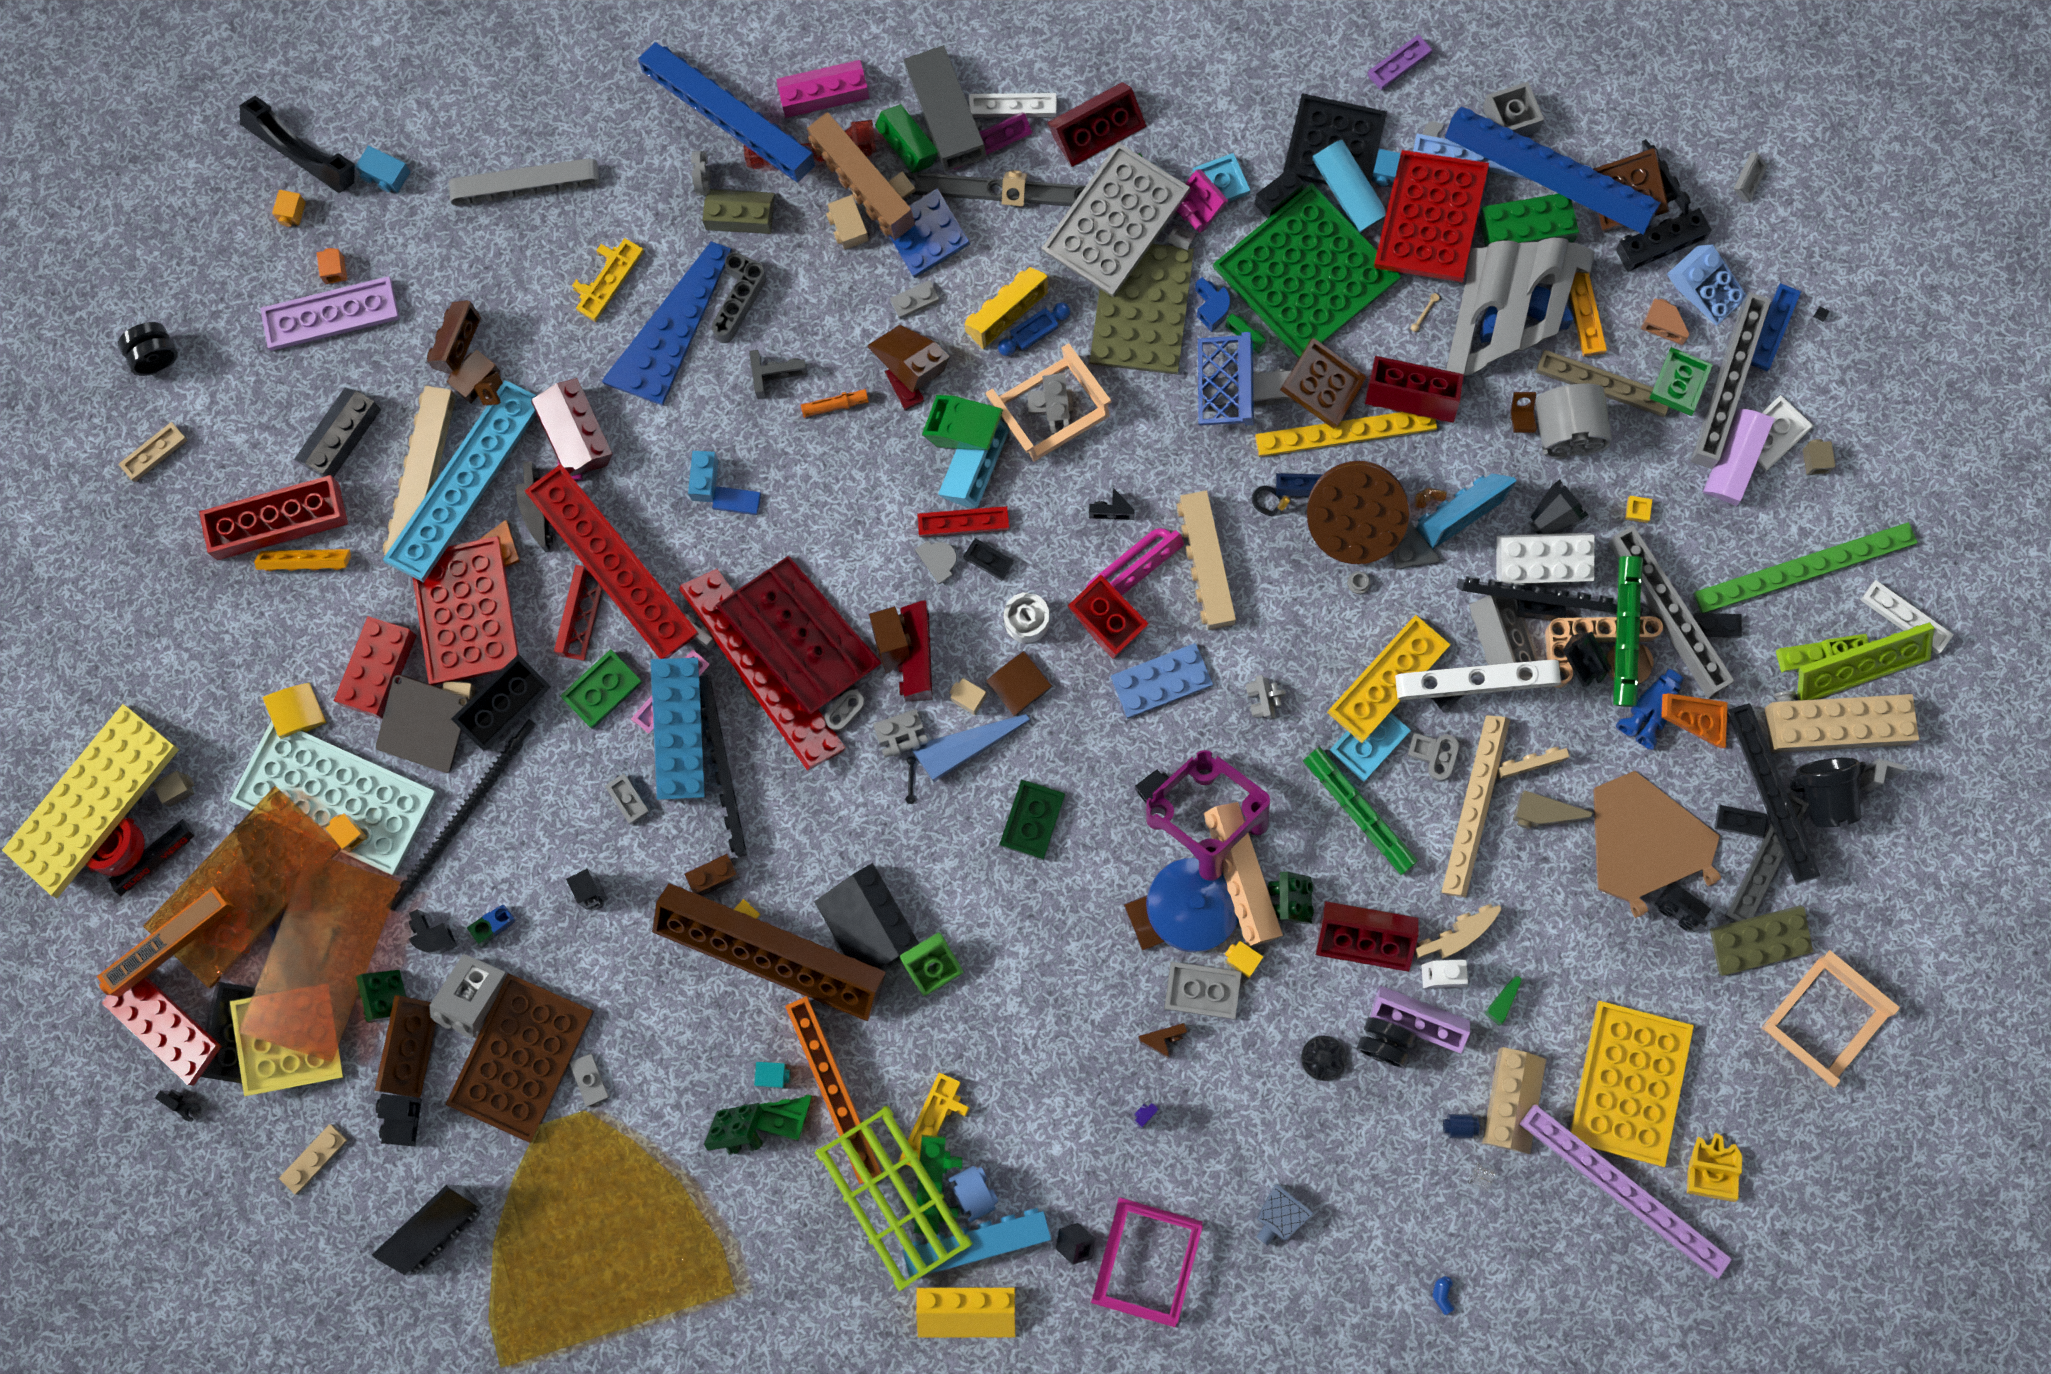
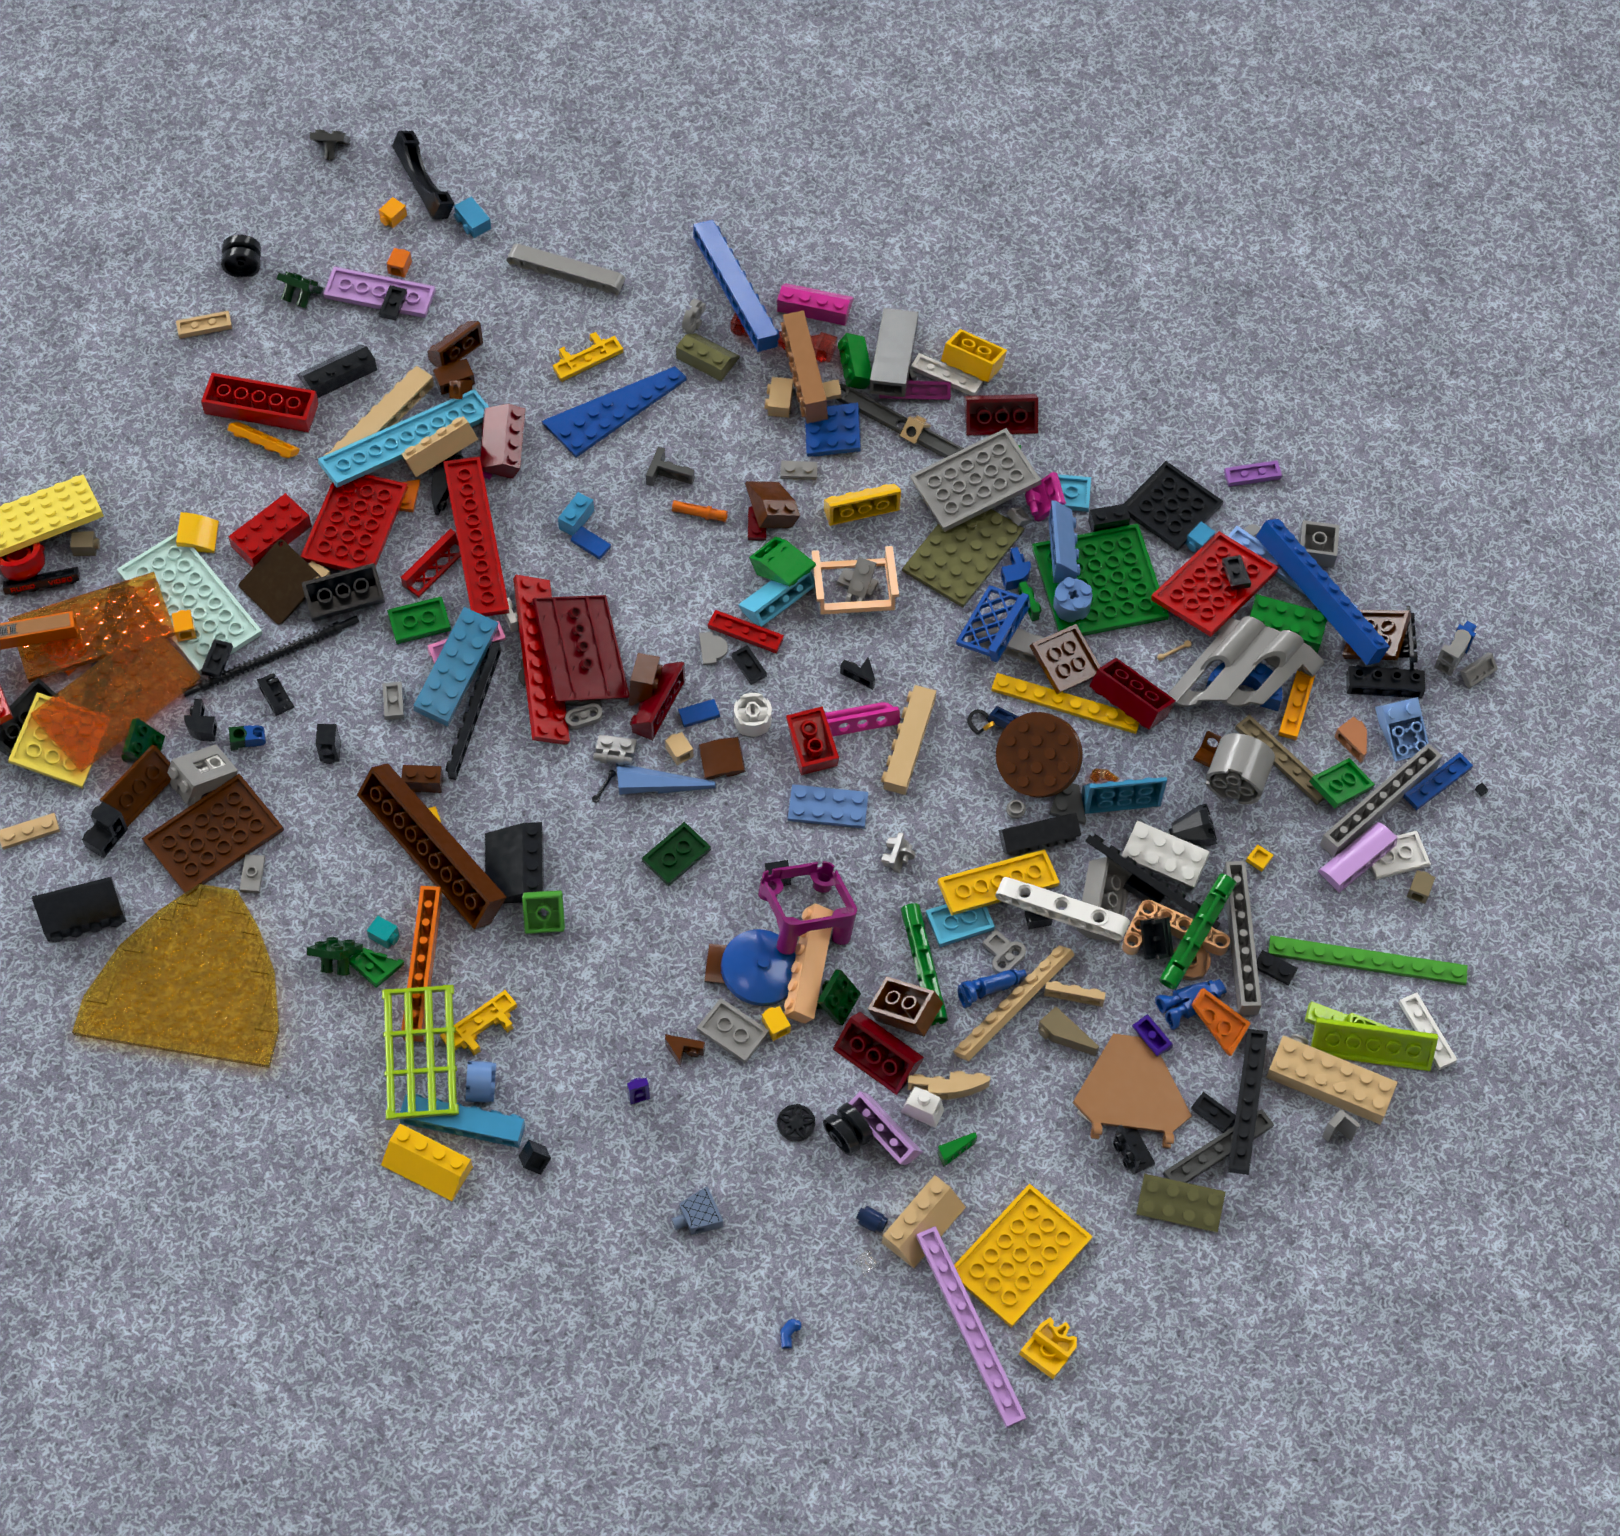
camera: 20 degrees right, 15 degrees down
(166, 154) = (329, 140): none -> dark grey plate
(228, 349) = (294, 281): none -> dark green plate
(354, 321) = (393, 303): none -> black plate
(406, 852) = (217, 658): none -> black plate
(493, 858) = (275, 694): none -> black hinge
(509, 474) = (439, 446): none -> tan slope
(734, 300) = (686, 404): dark grey beam -> none
(936, 1162) = (465, 1046): green hinge -> none
(965, 642) = (699, 713): none -> blue tile
(1032, 69) = (973, 355): none -> yellow brick
(1034, 329) = (874, 528): blue plate -> none
(1099, 1296) = (549, 1222): dark pink piece -> none
(1249, 250) = (1063, 542): none -> medium blue slope
(1295, 299) = (1072, 599): none -> medium blue brick
(1350, 186) = (1164, 536): medium azure brick -> none
(1372, 873) = (905, 1006): none -> reddish brown brick
(1401, 599) = (1040, 832): none -> black brick
(1441, 802) = (988, 985): none -> blue piece
(1451, 193) = (1236, 572): none -> black plate
(1635, 768) = (1152, 1035): none -> dark purple slope
(1719, 164) = (1452, 655): none -> light grey hips
(1831, 790) = (1294, 1117): black piece -> none
(1861, 987) = (1237, 1269): light nougat piece -> none

